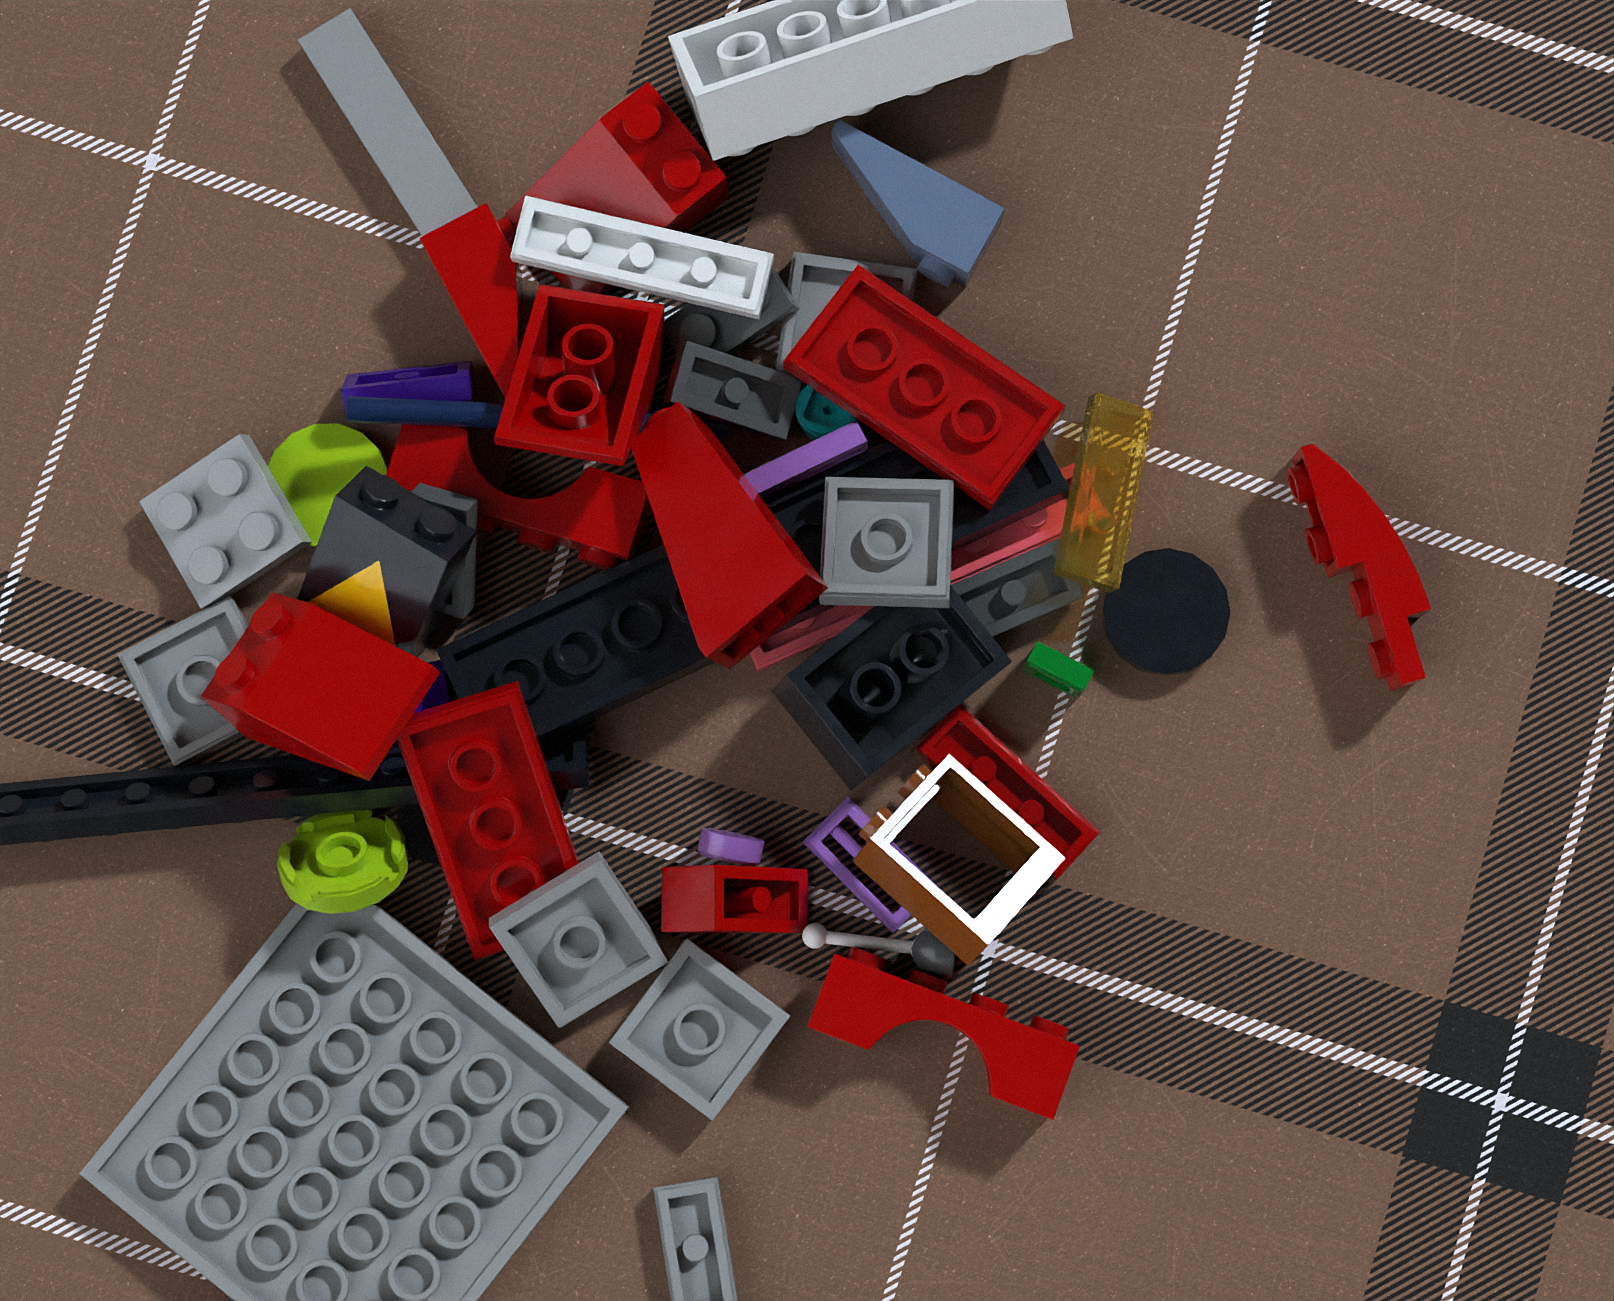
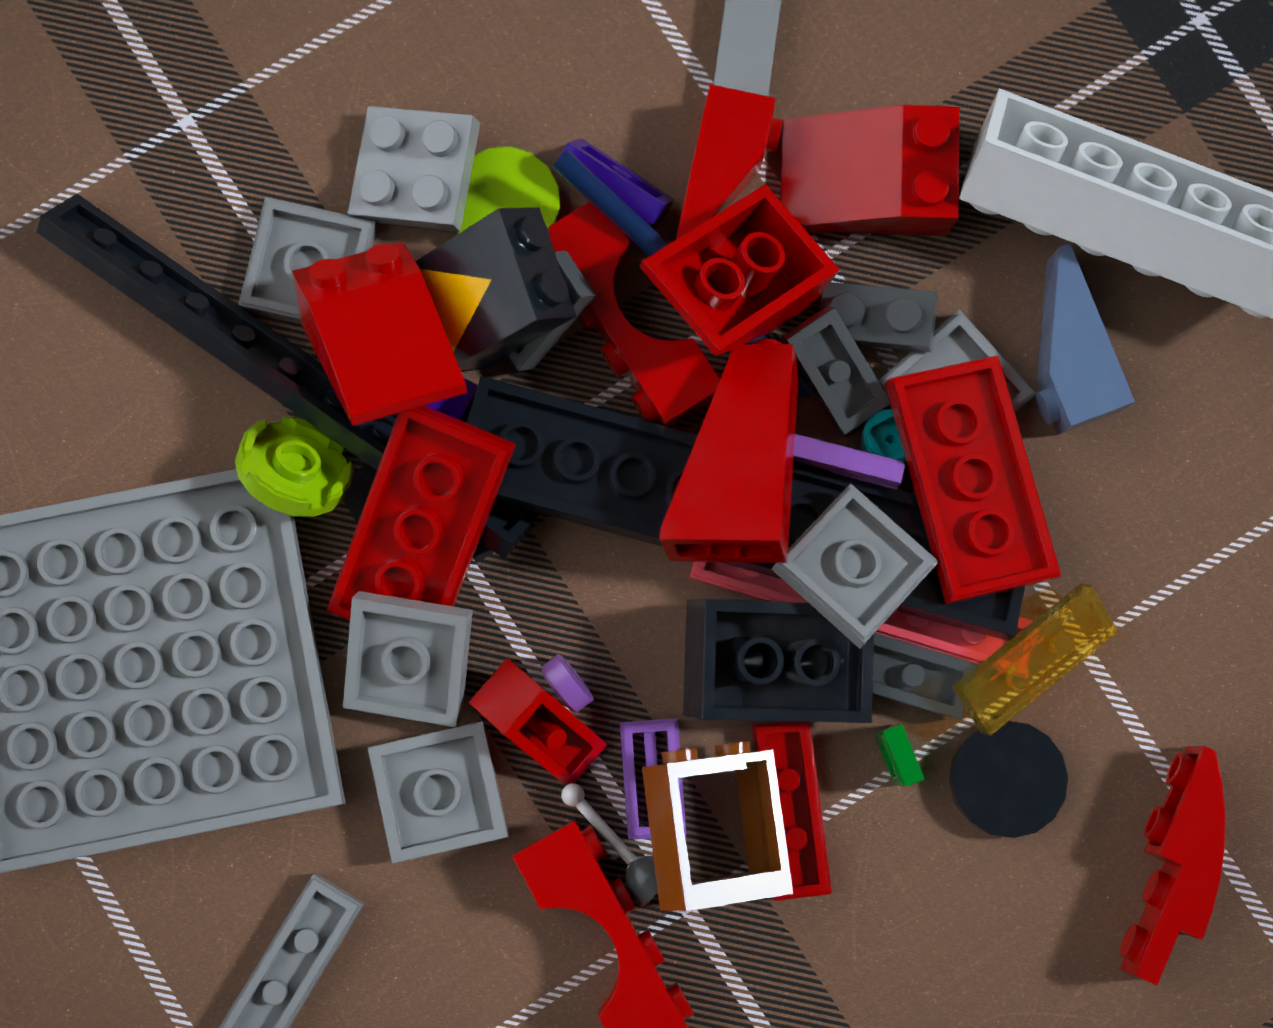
camera: 30 degrees right, 0 degrees up
(642, 257) = (852, 225): white tile -> none

